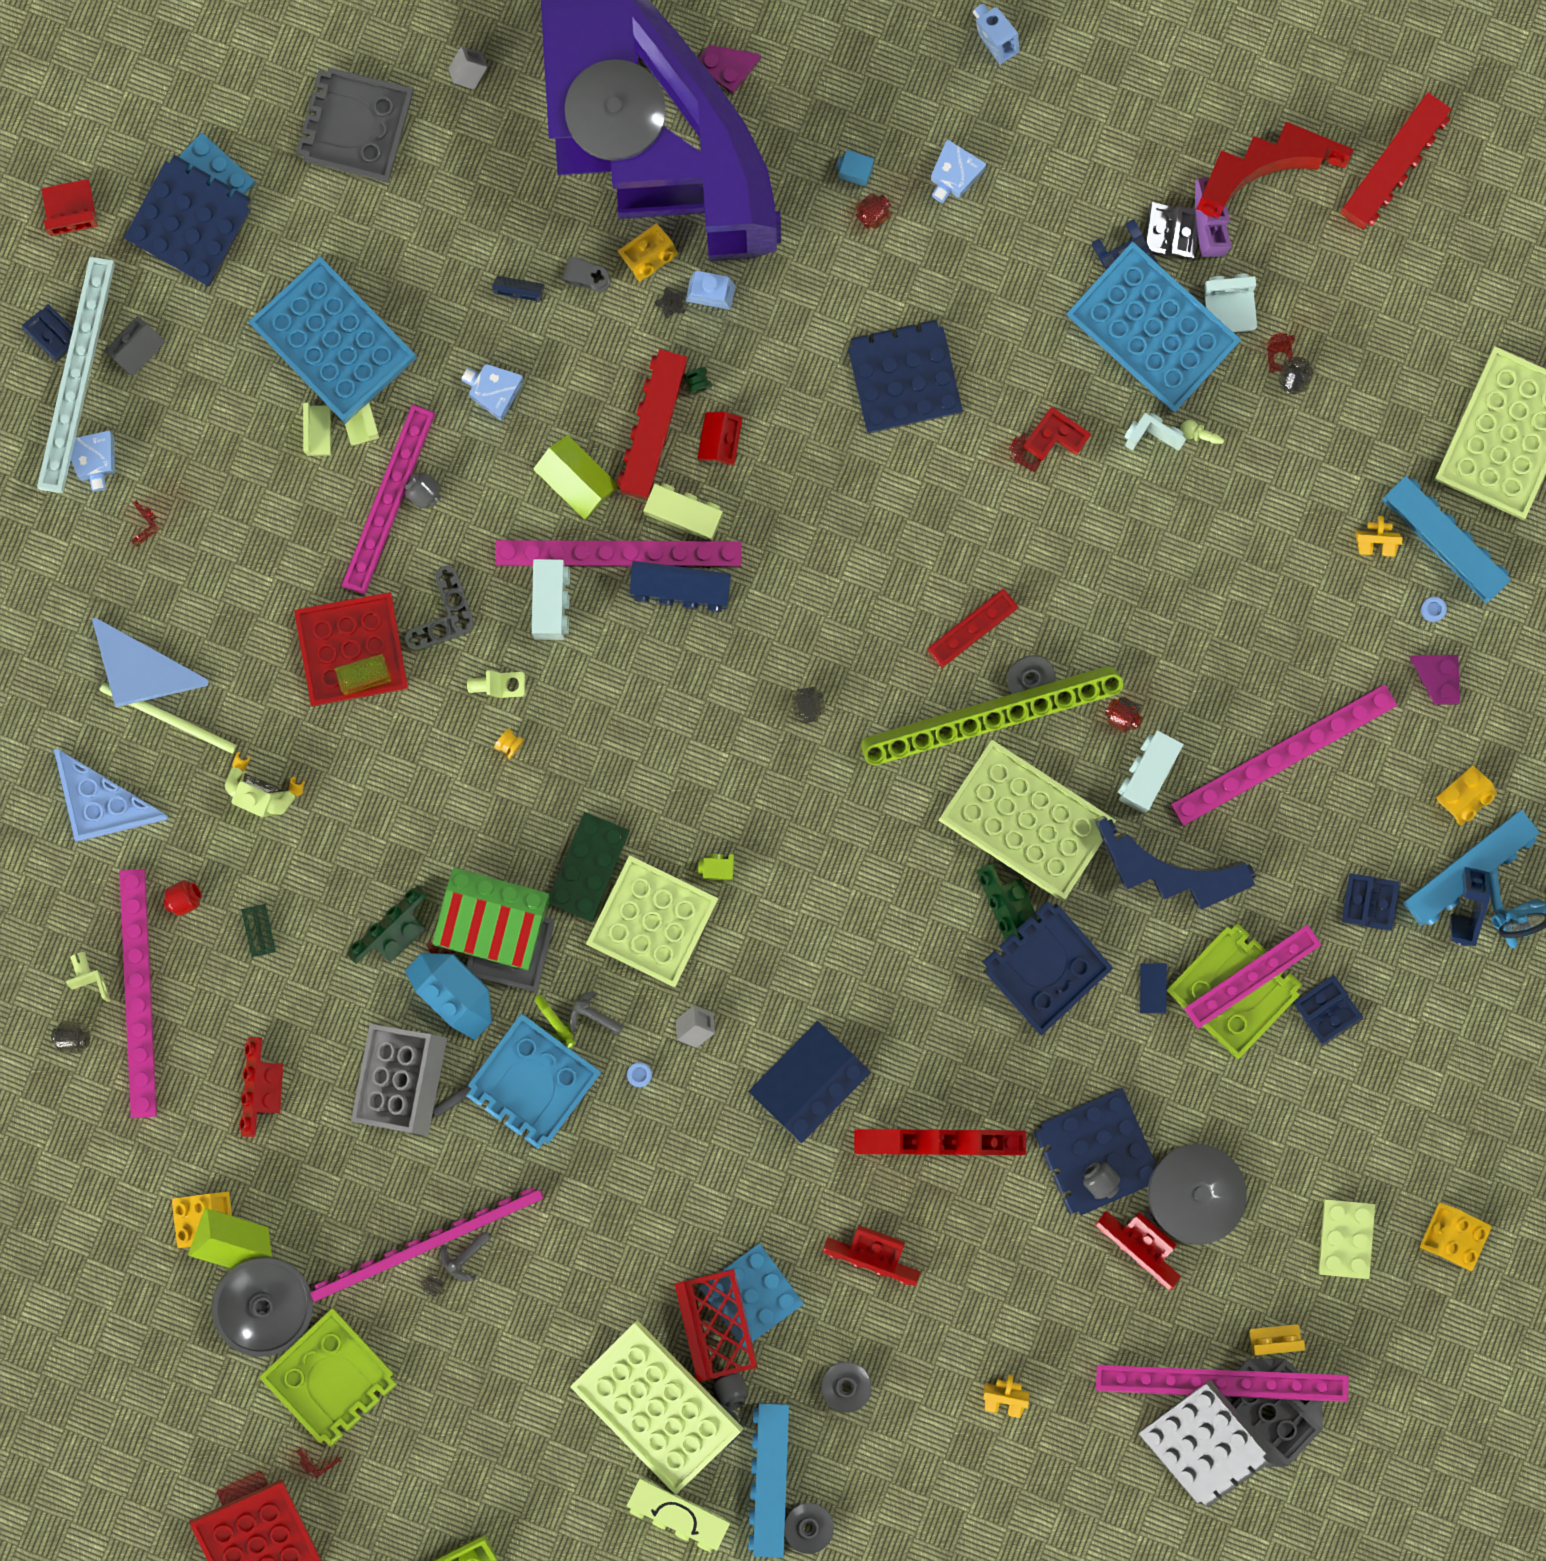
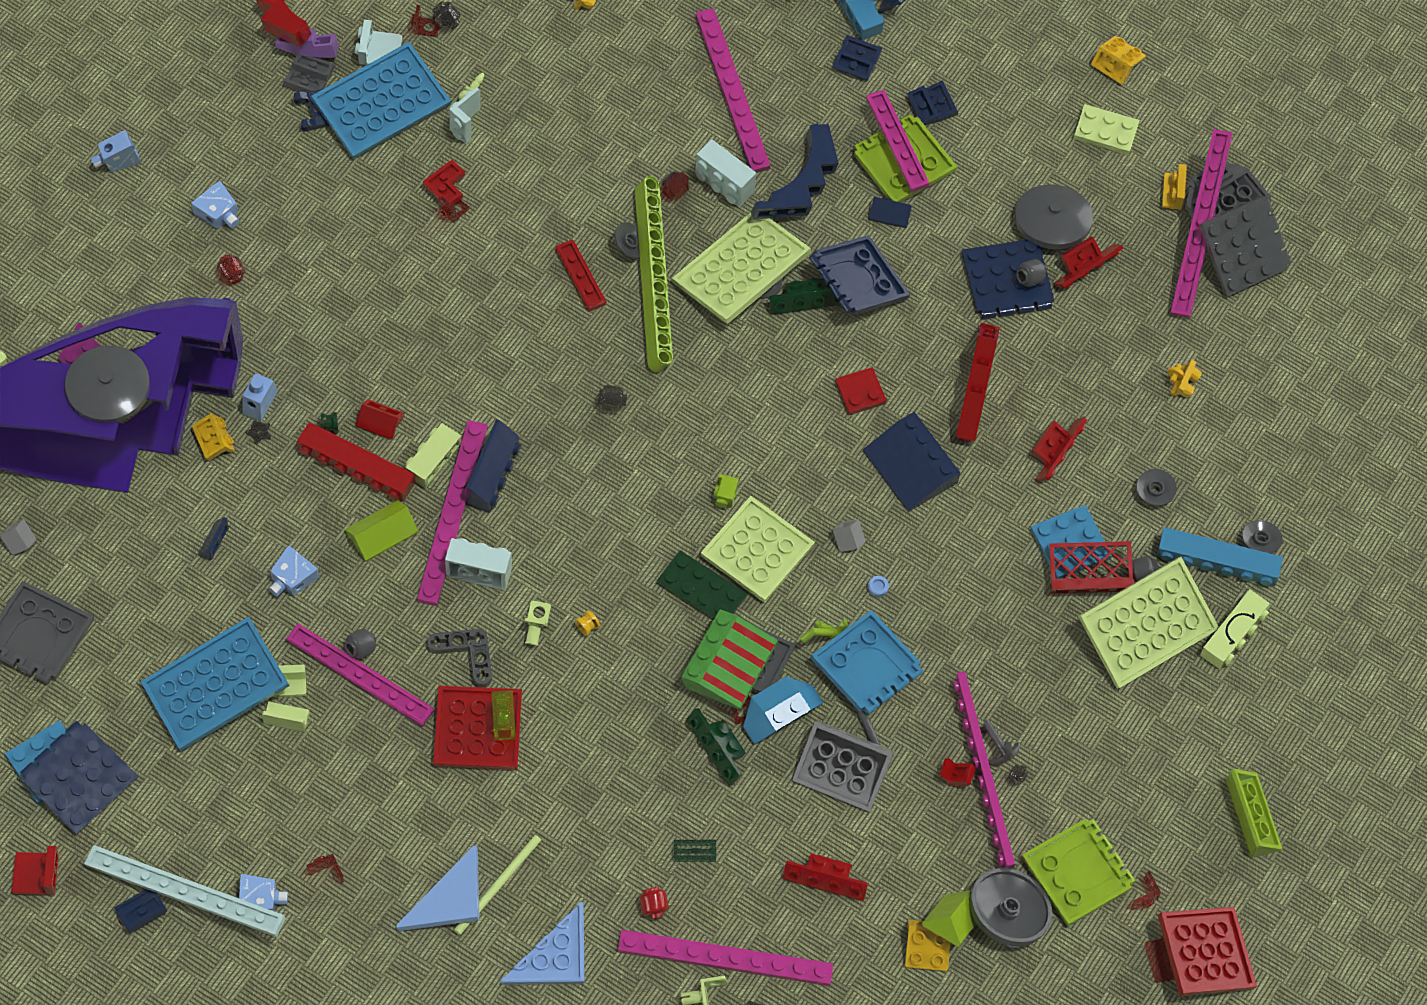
camera: 85 degrees left, 20 degrees down
(134, 346) = (170, 845): dark grey panel -> none
(258, 795) = (580, 824): yellowish green torso -> none
(417, 1213) = (957, 773): none -> red bracket
(582, 274) = (216, 487): dark grey piece -> none
(583, 1007) = (818, 608): dark grey piece -> none
(855, 168) = (192, 274): dark azure brick -> none
(895, 1001) = (860, 391): none -> red plate
(904, 377) = (368, 279): dark blue hinge -> none

